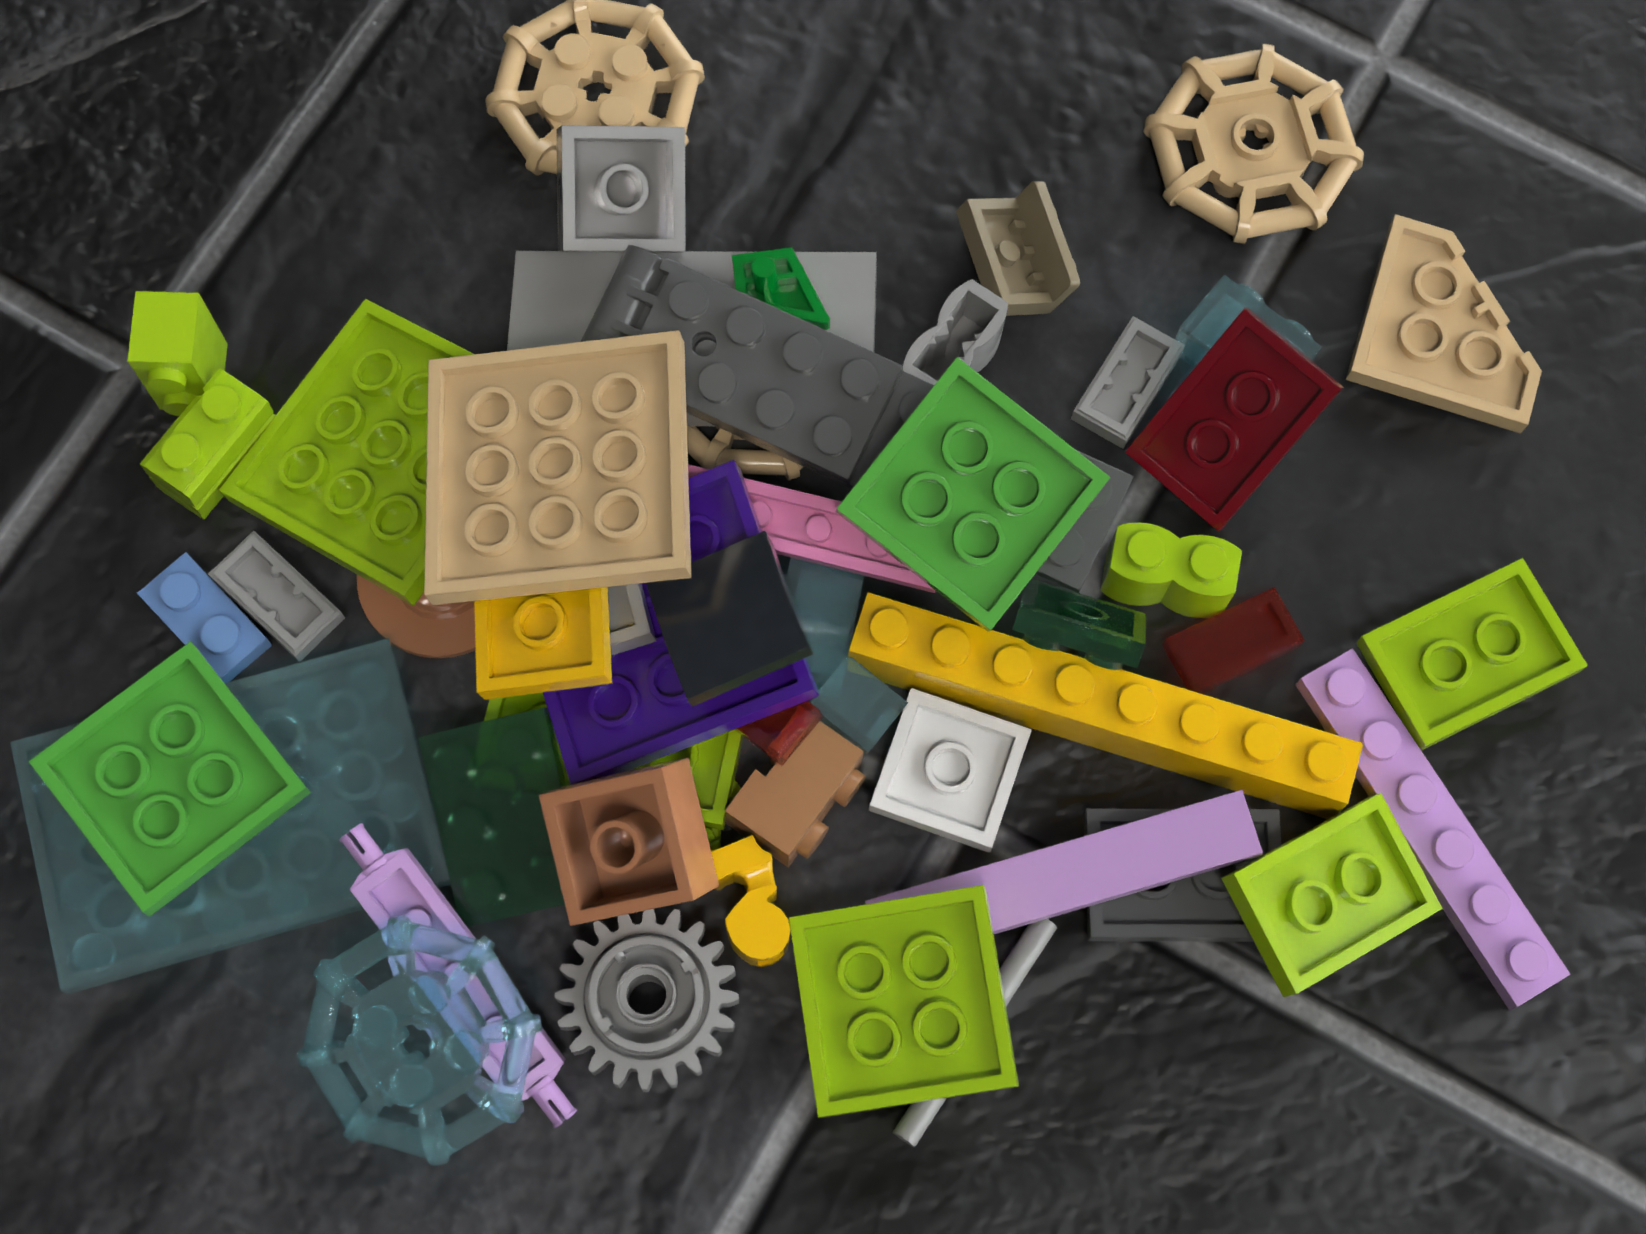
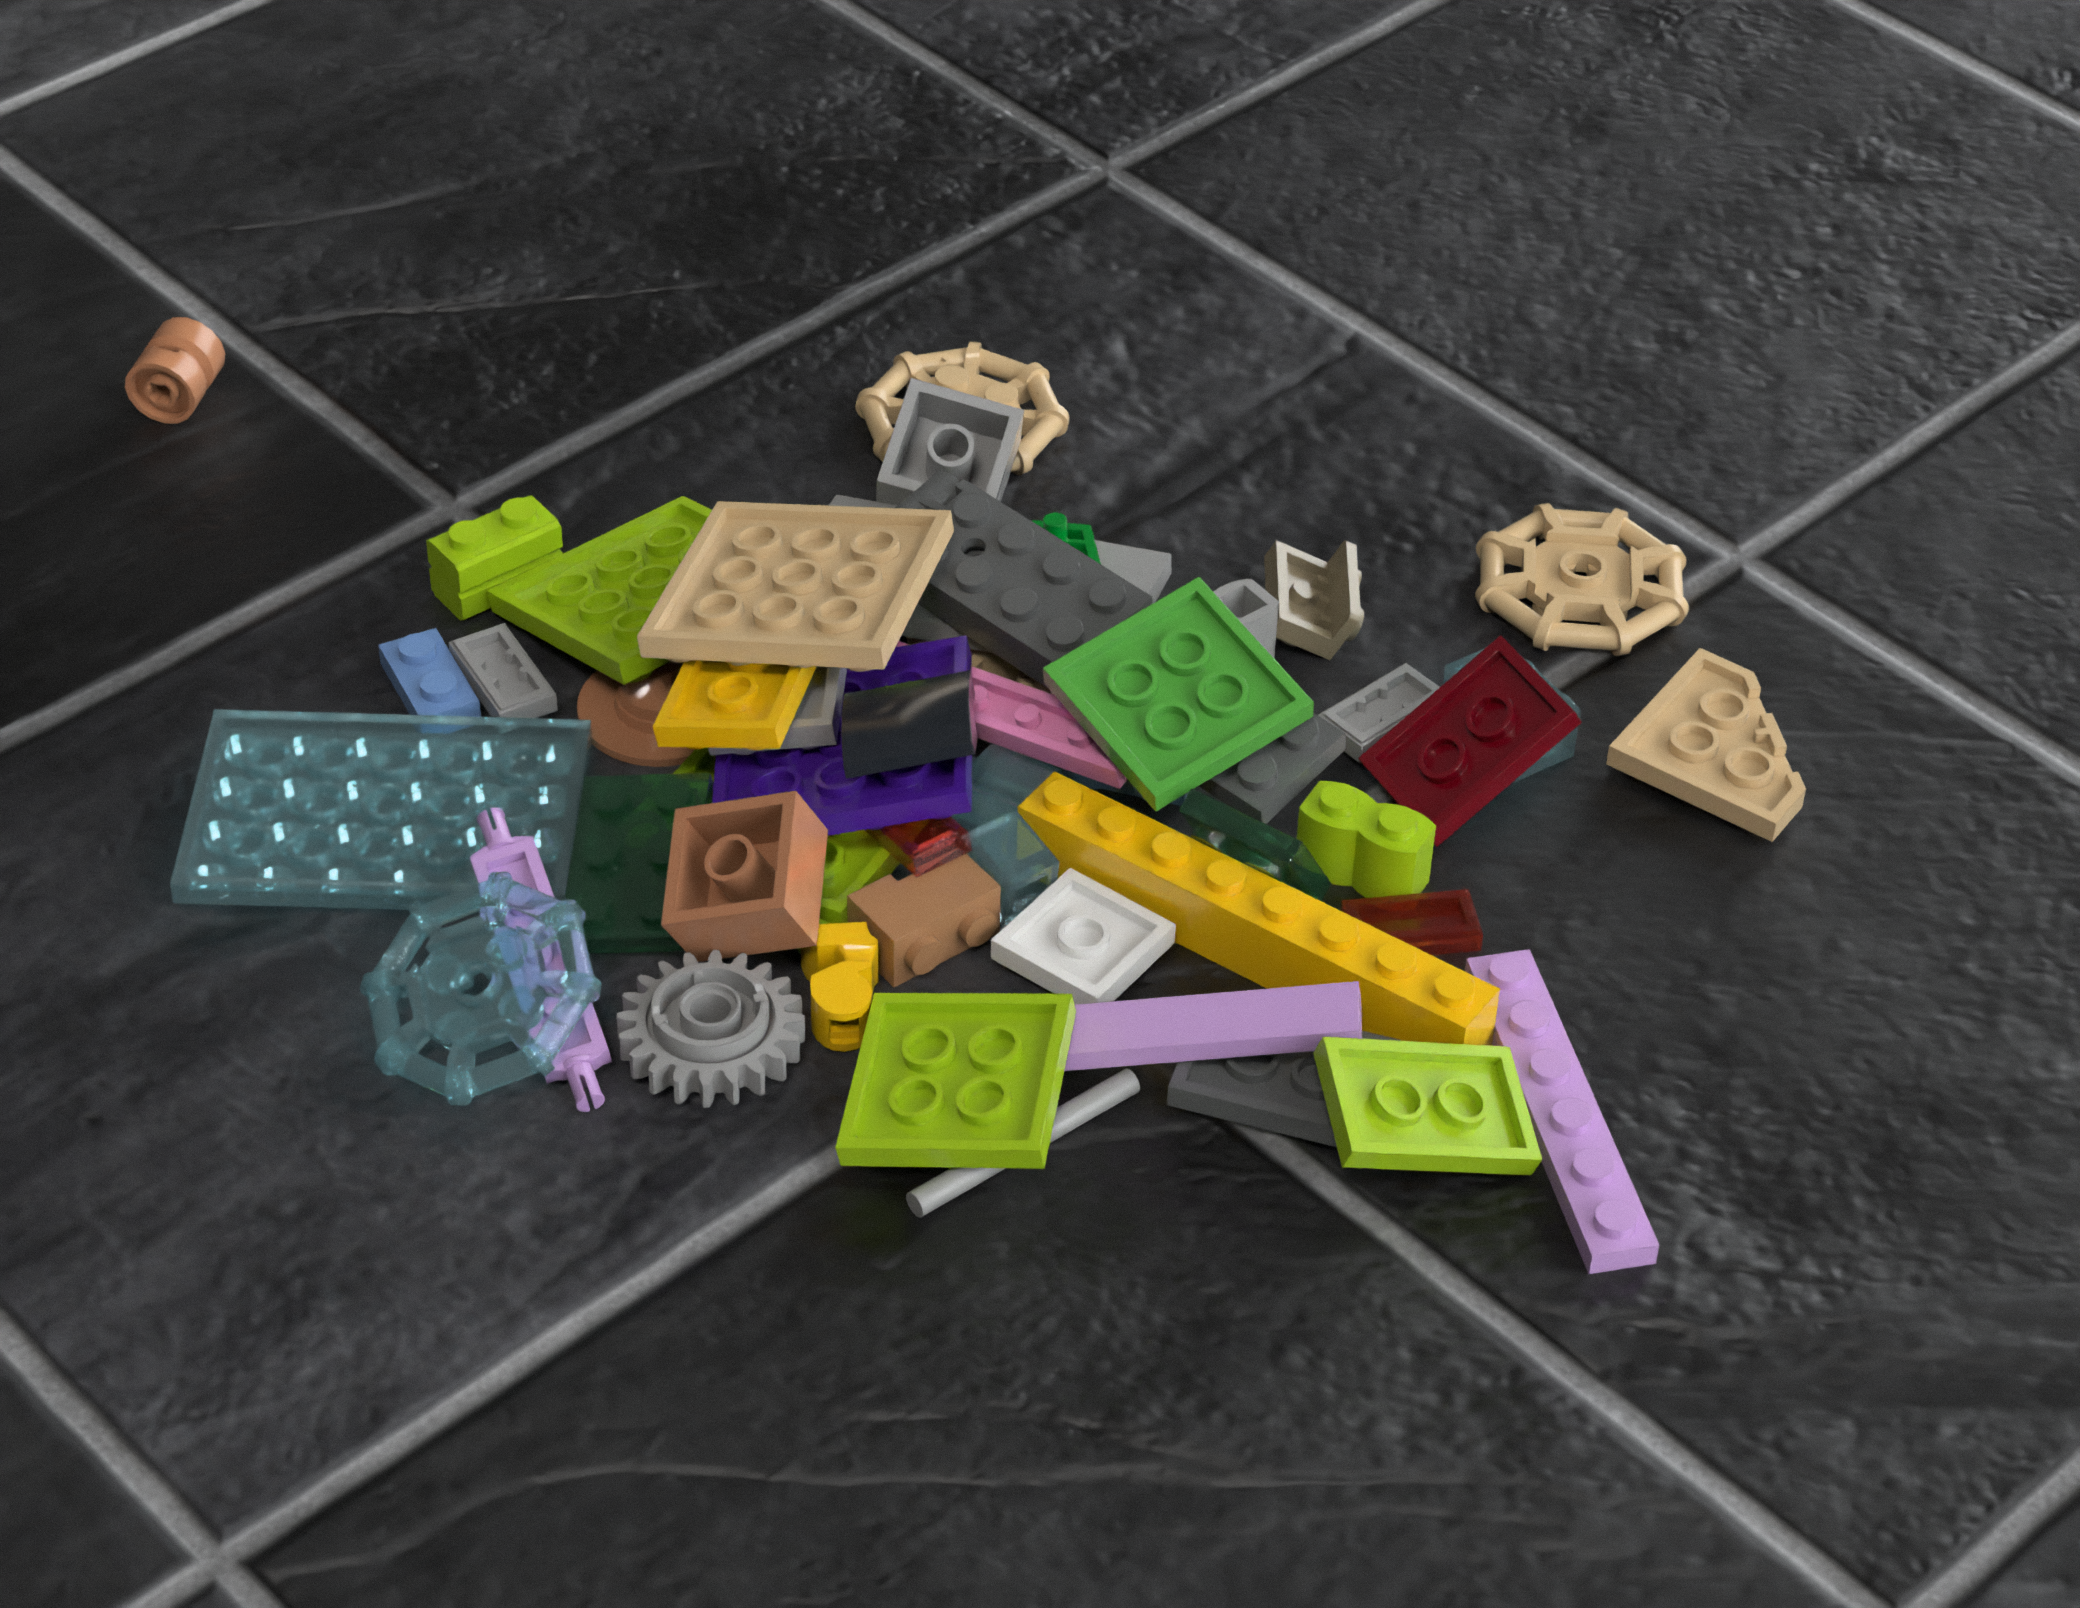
camera: 20 degrees right, 30 degrees down
(169, 778) = (345, 753): bright green plate -> none
(174, 347) = (495, 463): lime brick -> none
(1471, 654) = (1651, 982): lime plate -> none

